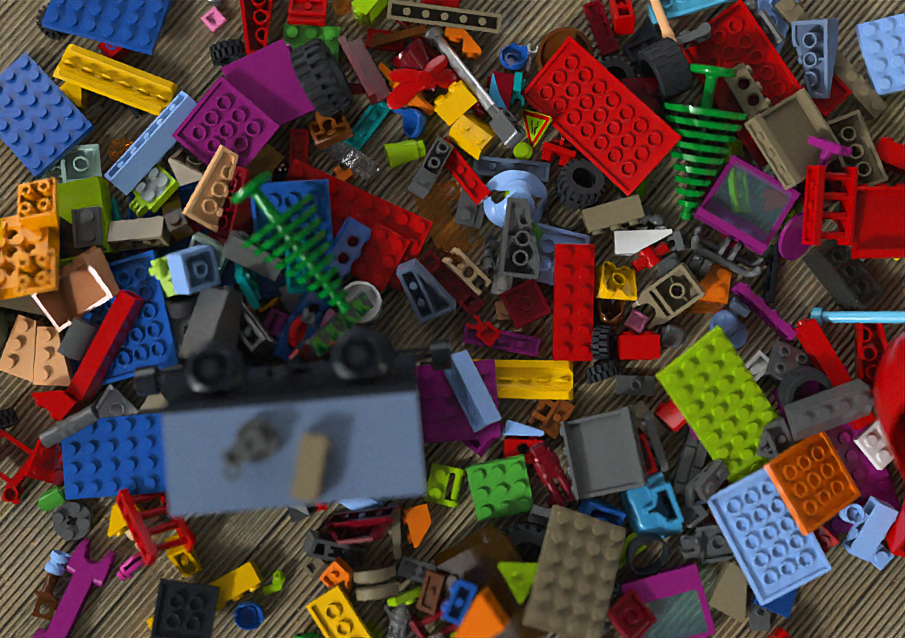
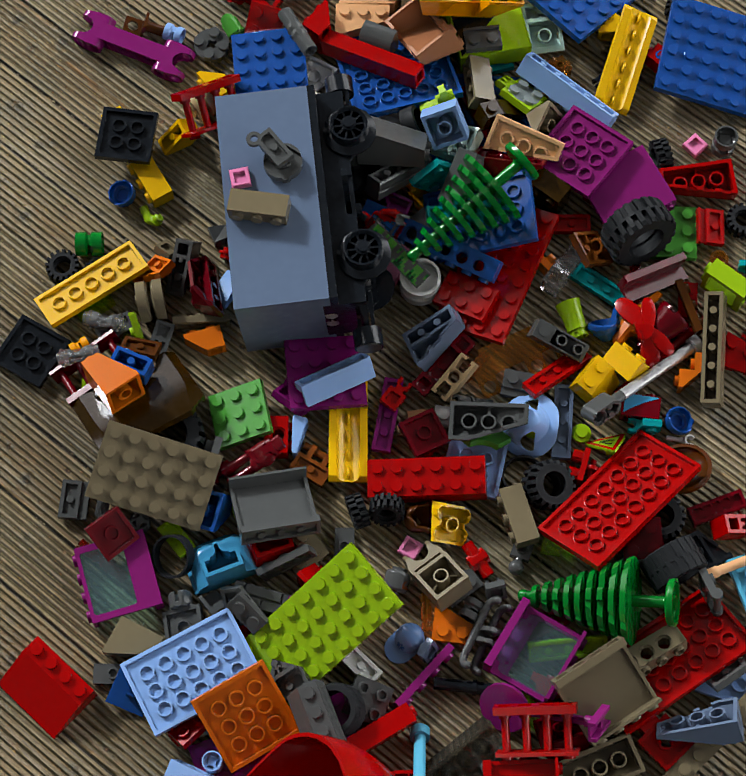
camera: 90 degrees right, 15 degrees down
(130, 567) = (165, 91): dark pink arm -> none
(272, 487) = (240, 178): none -> bright pink tile
(438, 483) = (243, 360): lime plate -> none
(518, 577) = (153, 418): lime piece -> none
(633, 241) = (491, 539): white slope -> none
(637, 347) = (382, 538): red brick -> none

